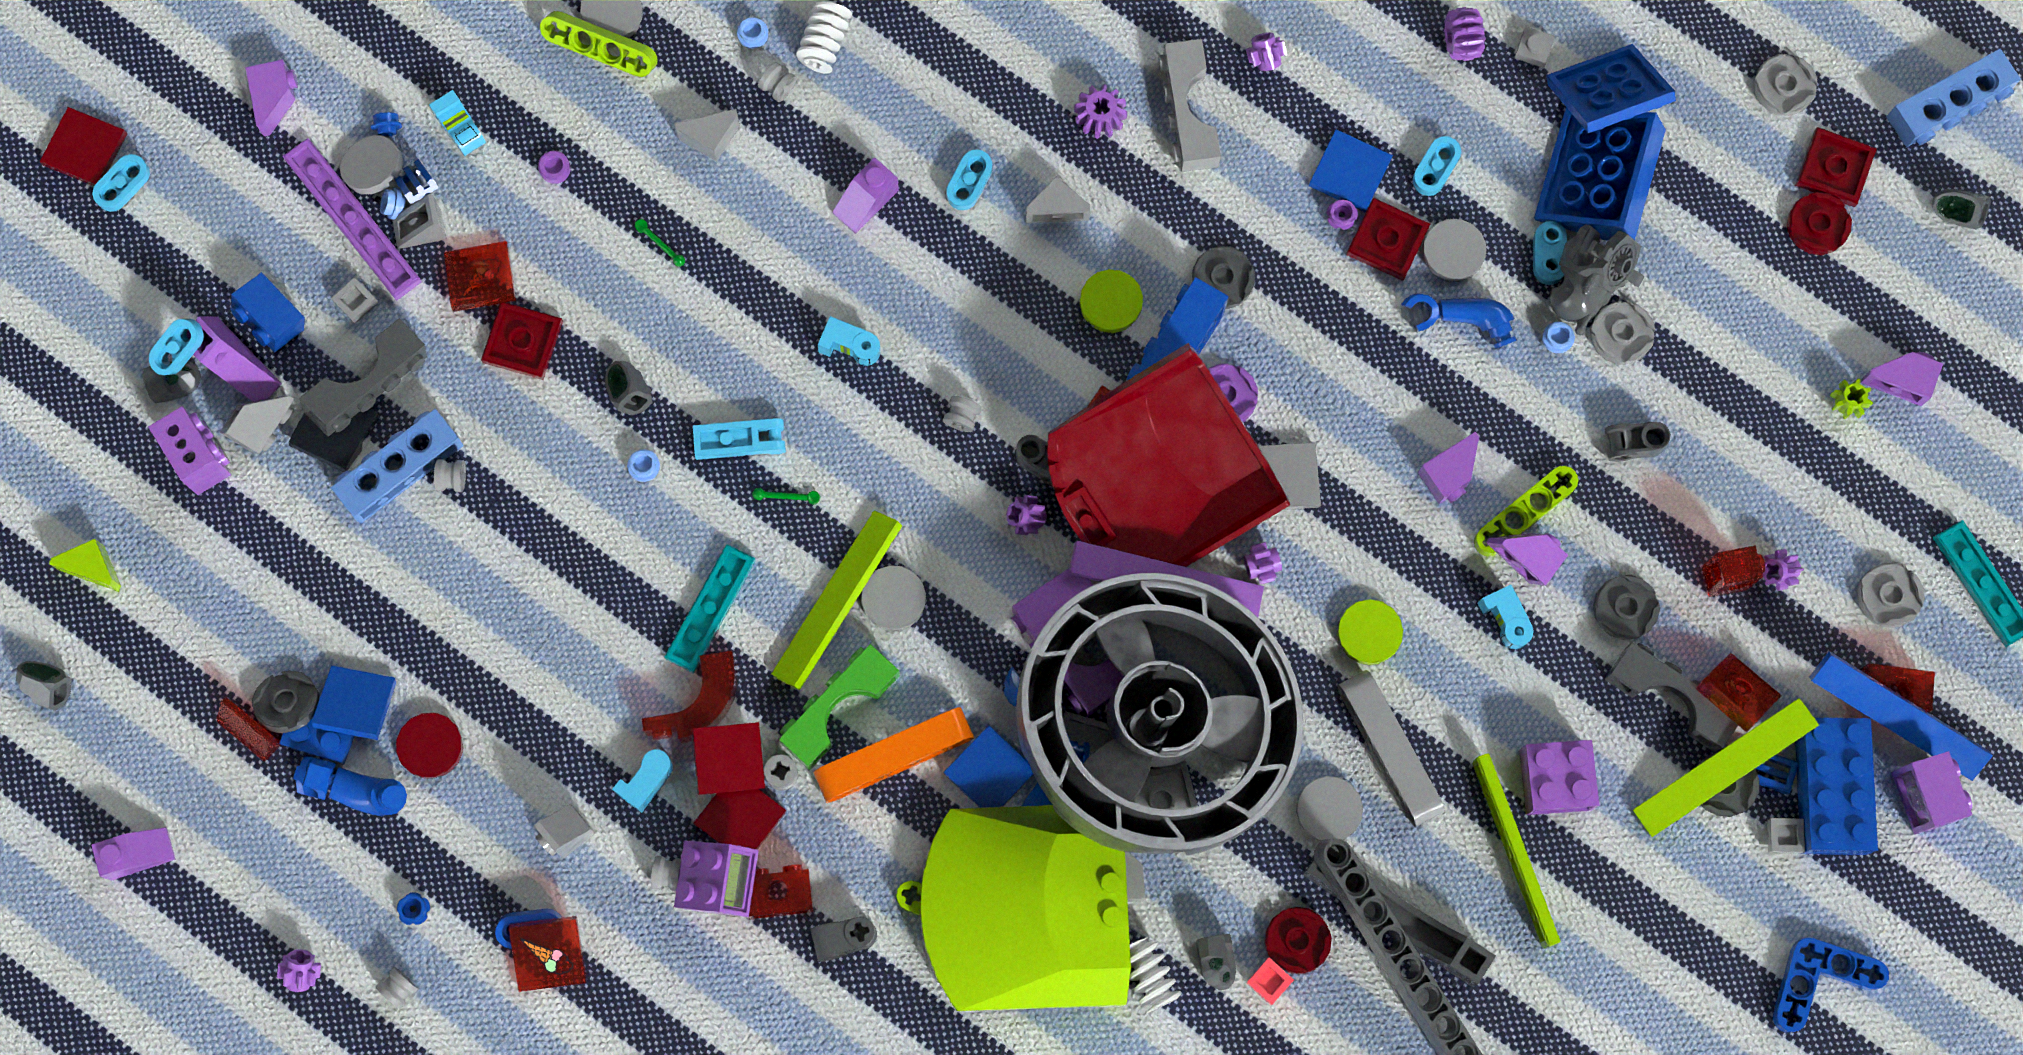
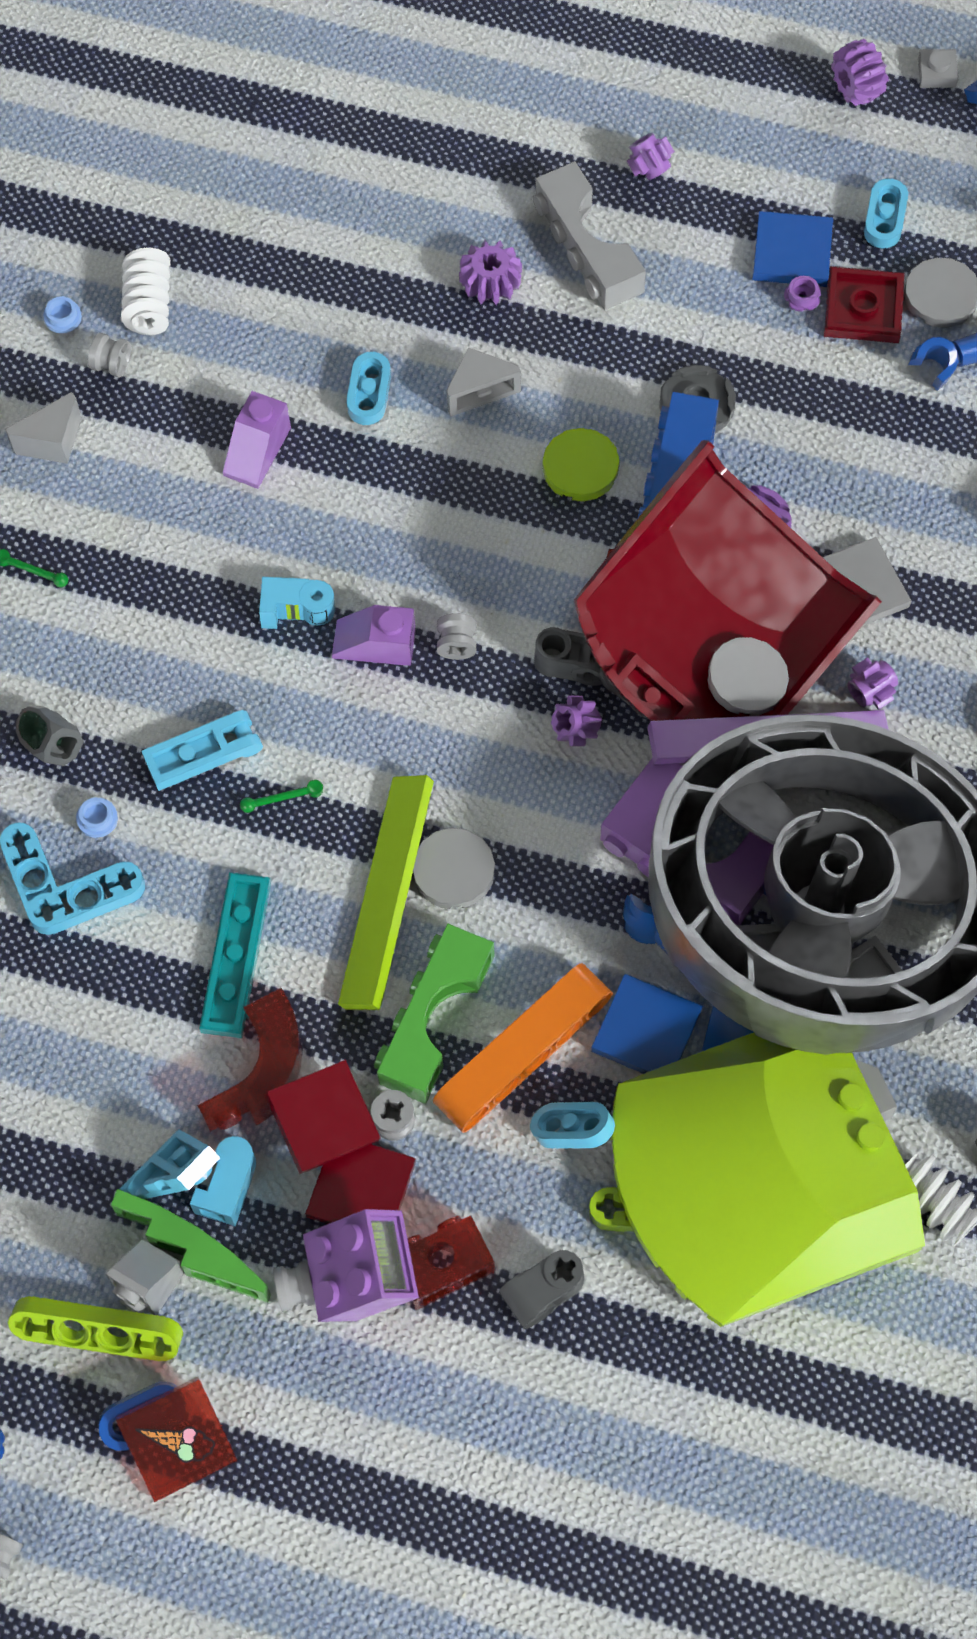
camera: 15 degrees left, 10 degrees down
(486, 837) = (95, 1333): none -> lime beam
(589, 512) = (50, 895): none -> medium azure beam
(608, 758) = (172, 1168): none -> medium azure wing
(609, 827) = (203, 1255): none -> bright green slope
(901, 392) = (376, 635): none -> medium lavender slope
(909, 828) = (577, 1125): none -> medium azure plate
(1167, 527) = (747, 676): none -> light grey tile

